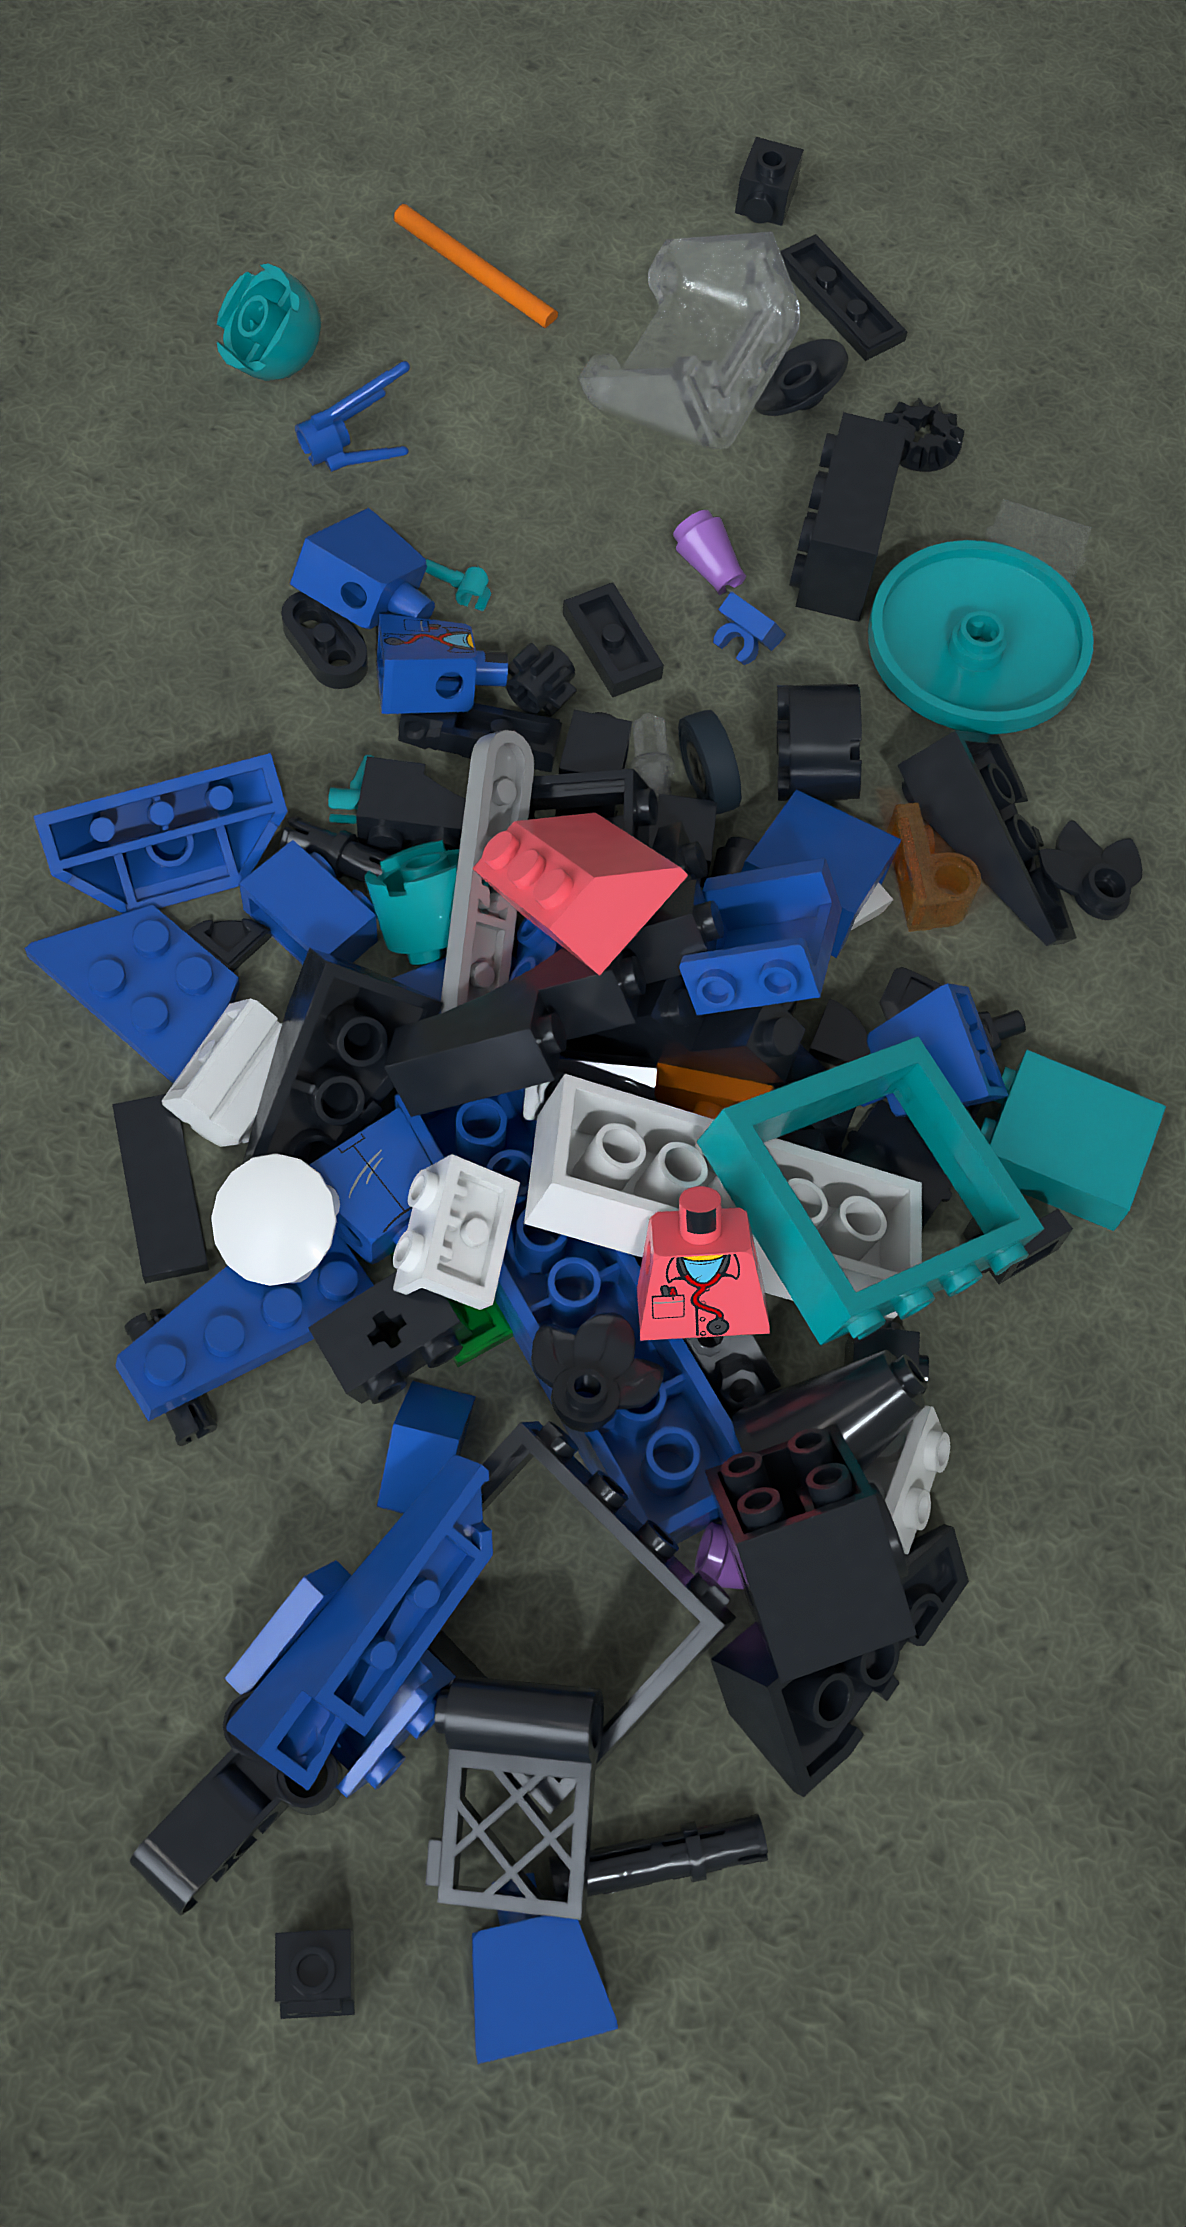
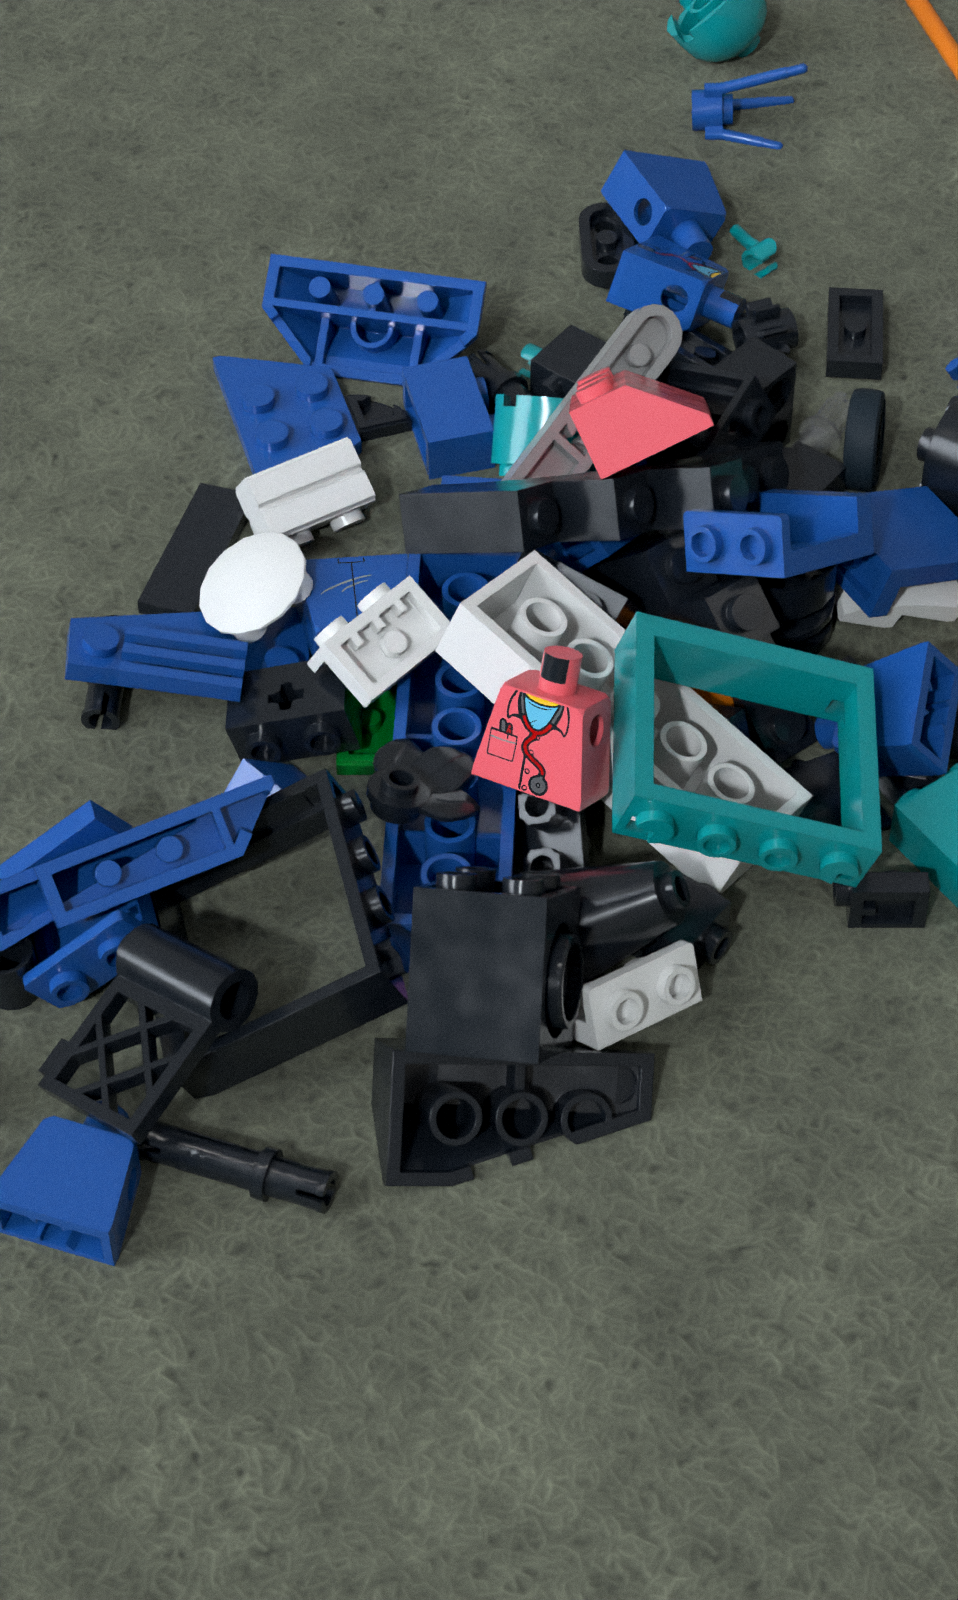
camera: 40 degrees right, 15 degrees down
(255, 1327) = (183, 655): none -> blue tile
(331, 1057) = (363, 506): black wedge -> none

